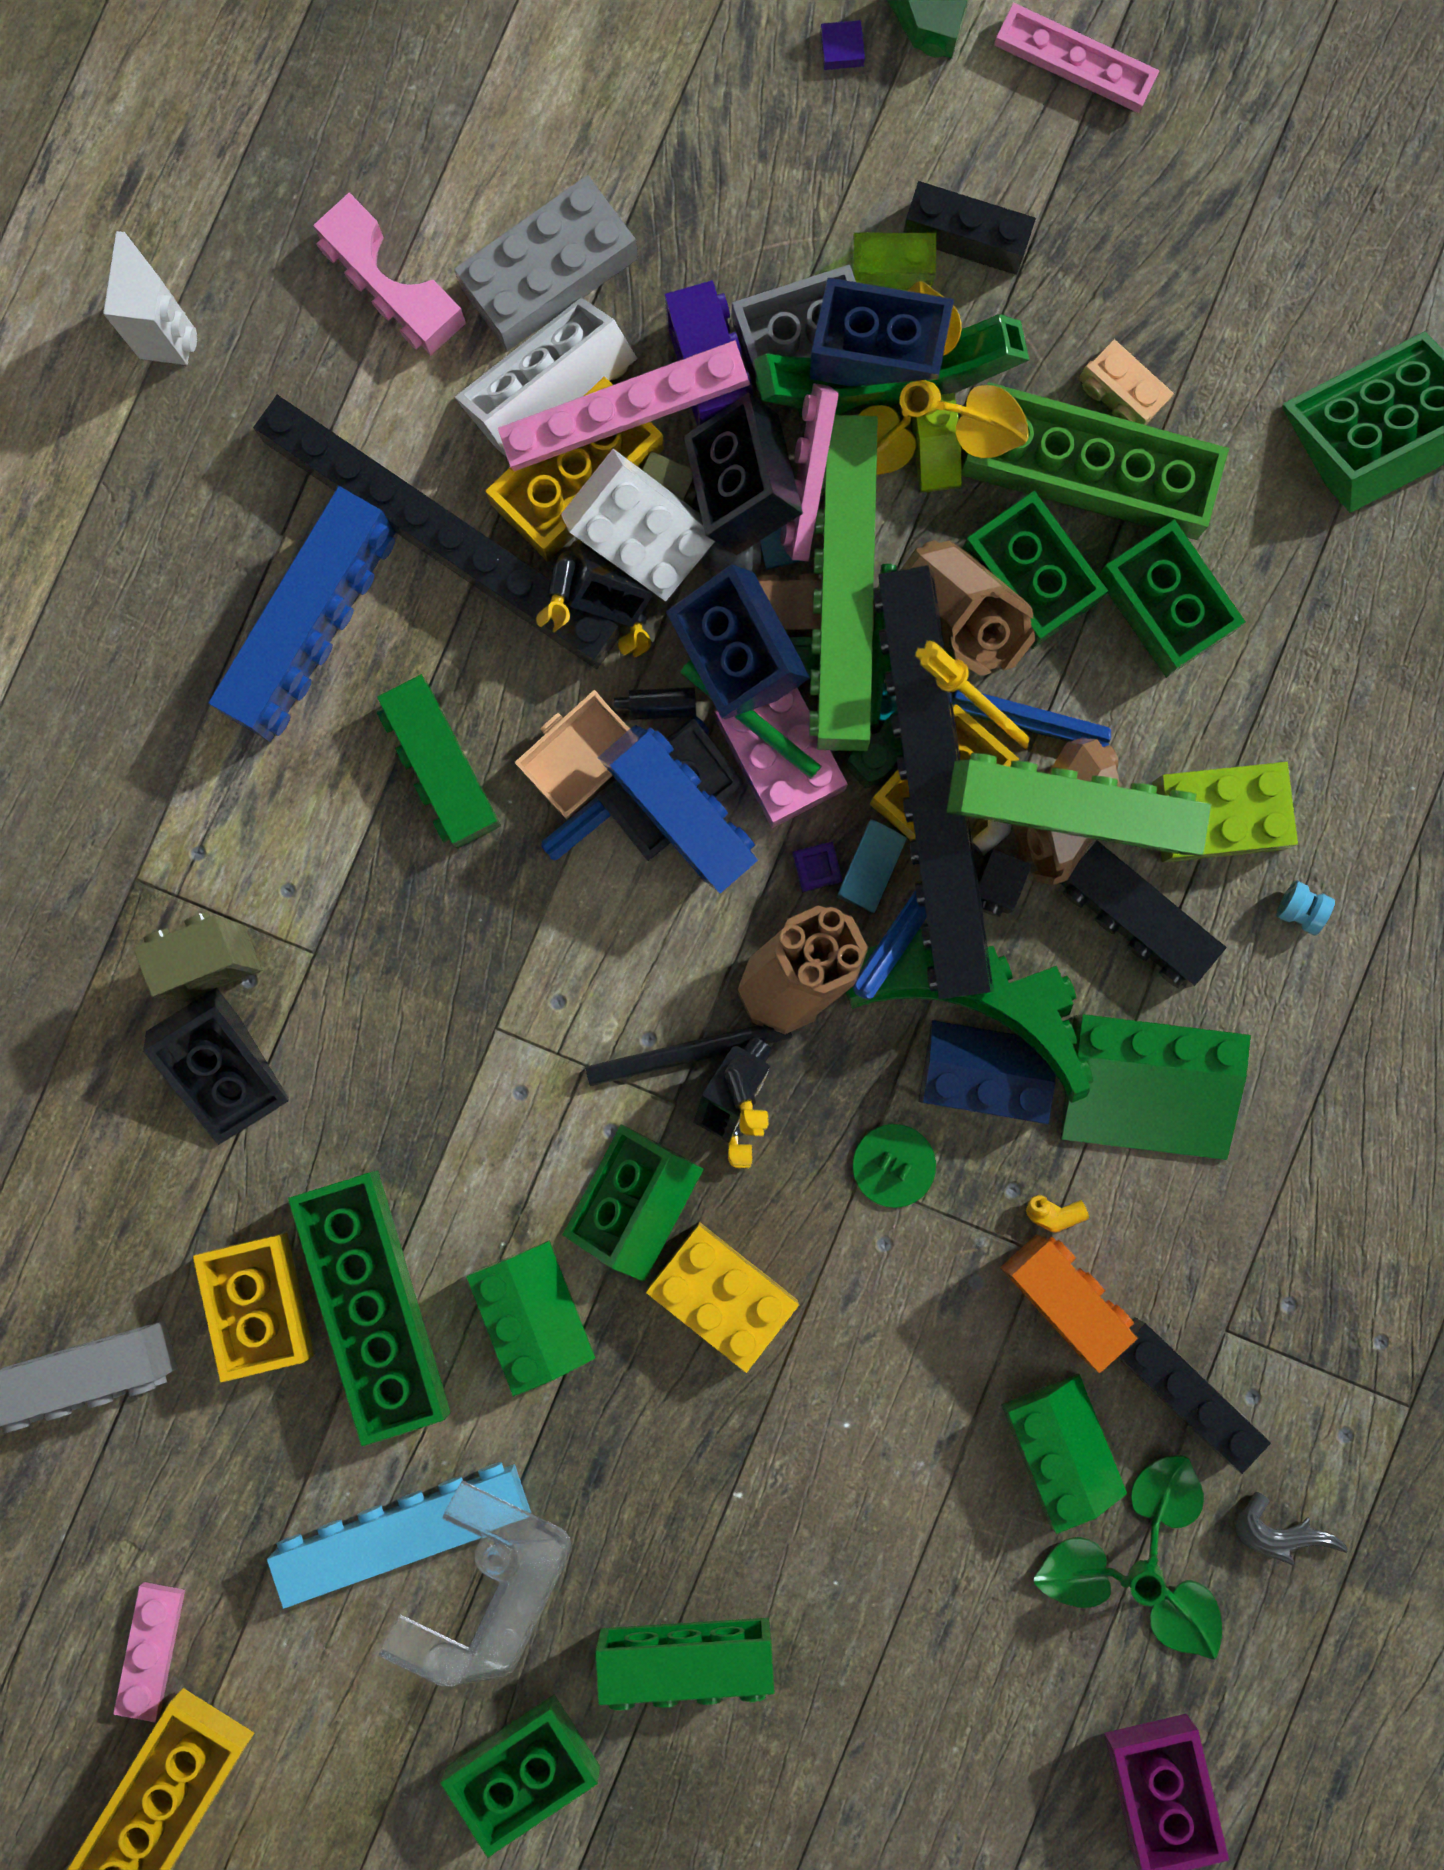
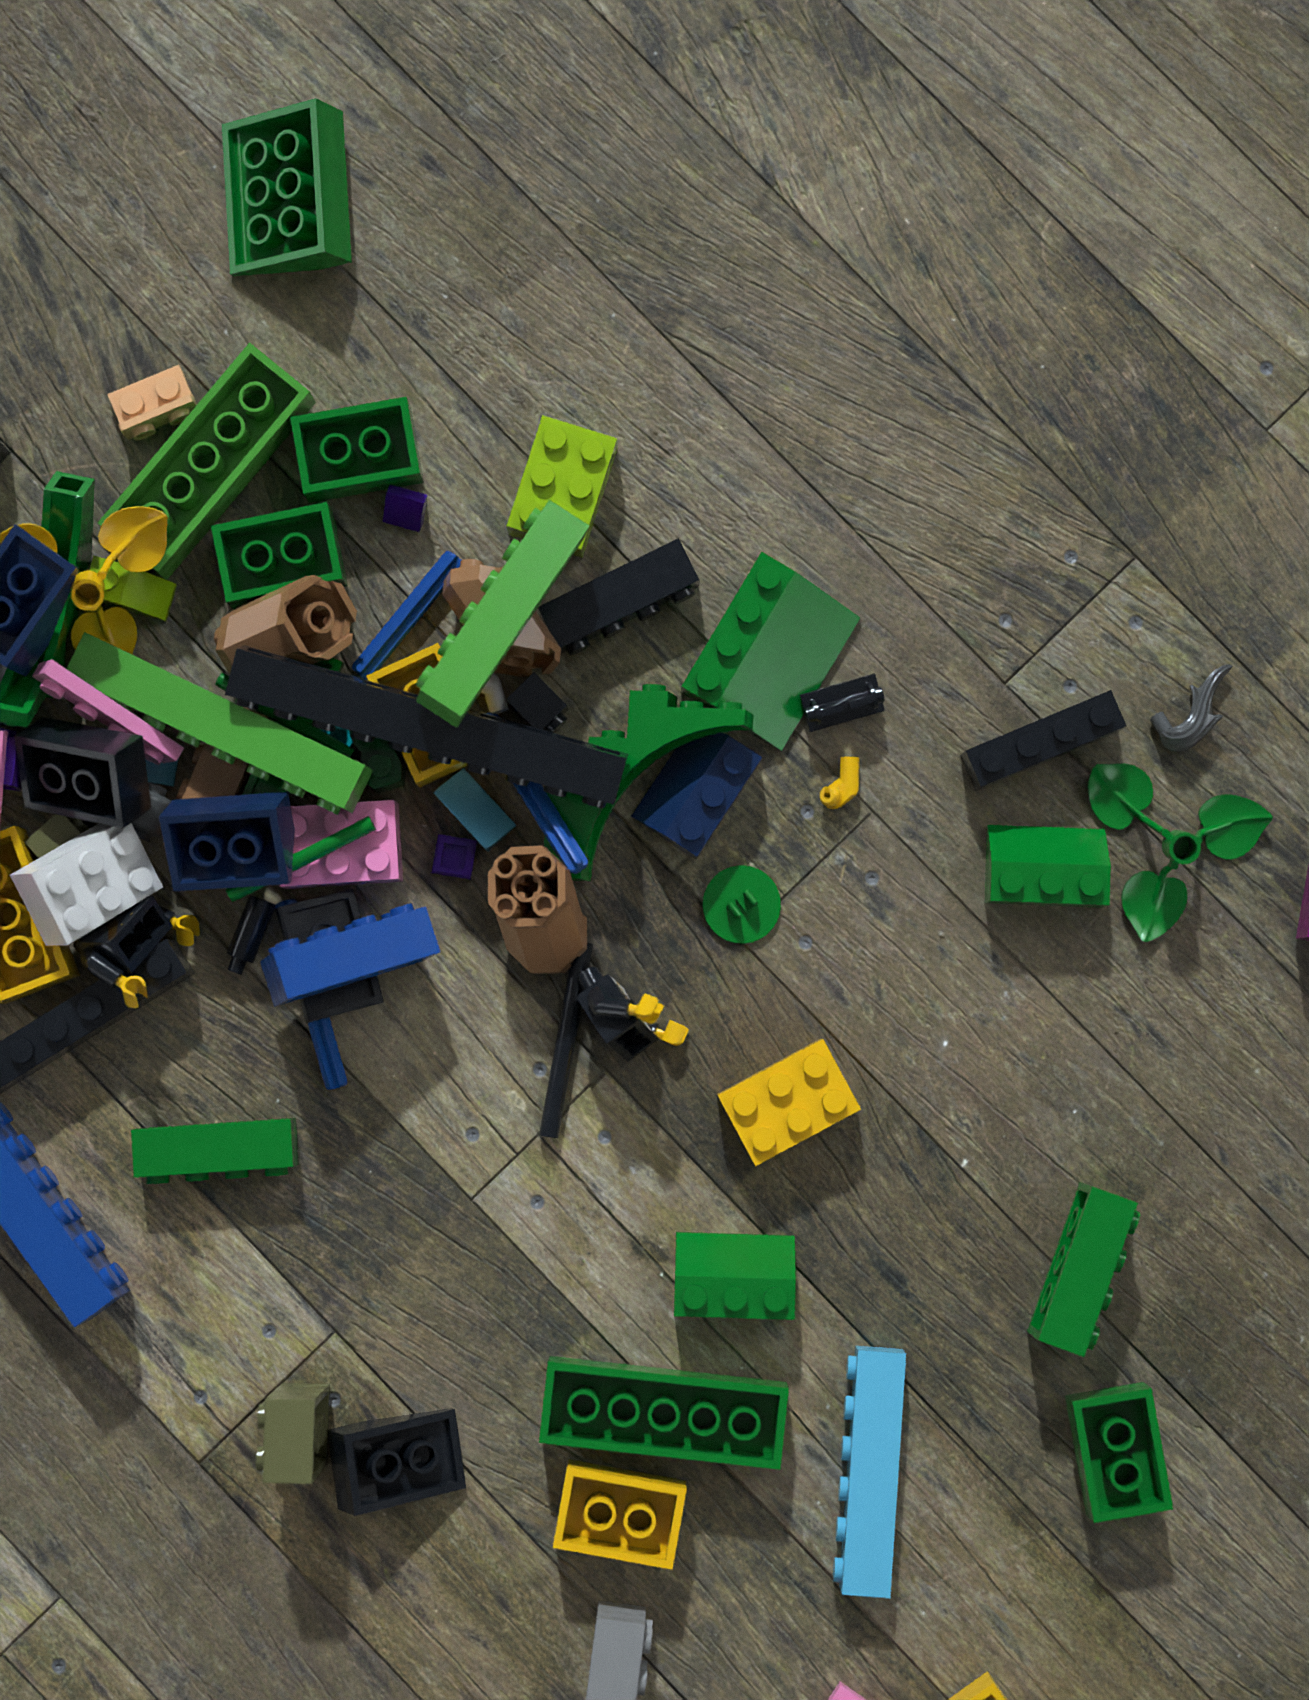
camera: 65 degrees left, 0 degrees up
(518, 1553) = (940, 1366): clear windscreen -> none
(565, 758) = (262, 1035): light nougat container -> none
(632, 1203) = (674, 1144): green slope -> none
(952, 676) = (342, 670): yellow piece -> none
(1070, 1301) = (920, 805): orange brick -> none
(1133, 669) = (404, 508): none -> dark purple tile
(1136, 1179) = (842, 702): none -> black hinge
(1305, 907) = (675, 454): medium azure wheel -> none

